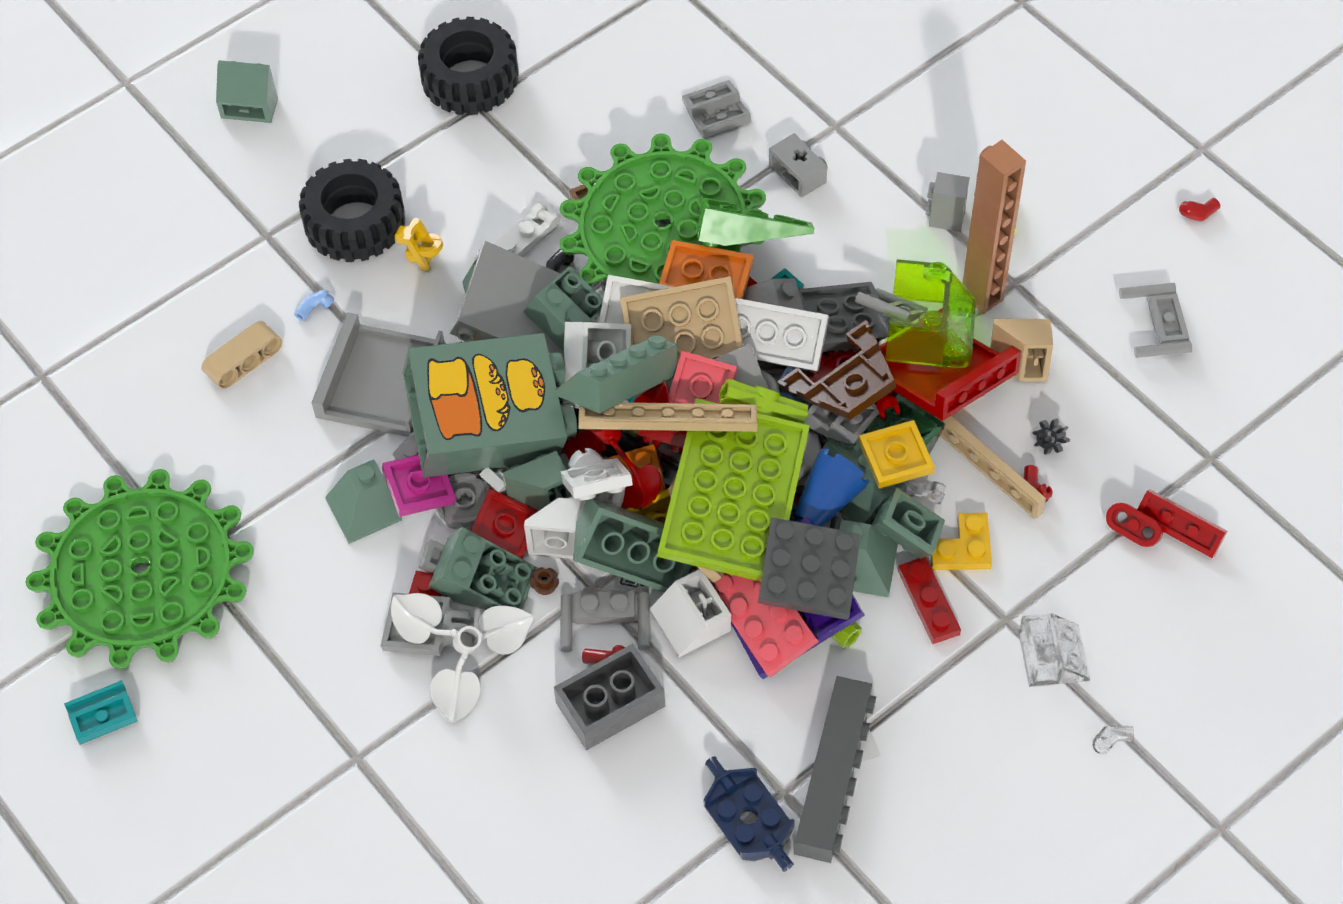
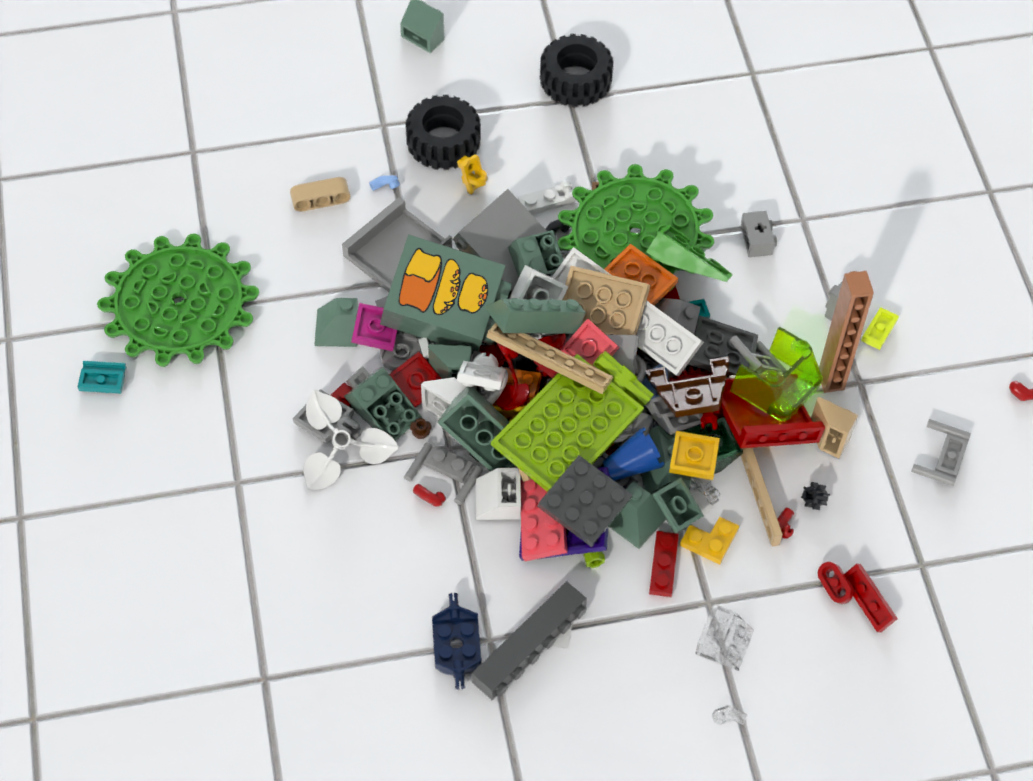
camera: 25 degrees right, 0 degrees up
(609, 696) = (413, 521): flat silver brick -> none
(716, 109) = (727, 172): light grey slope -> none

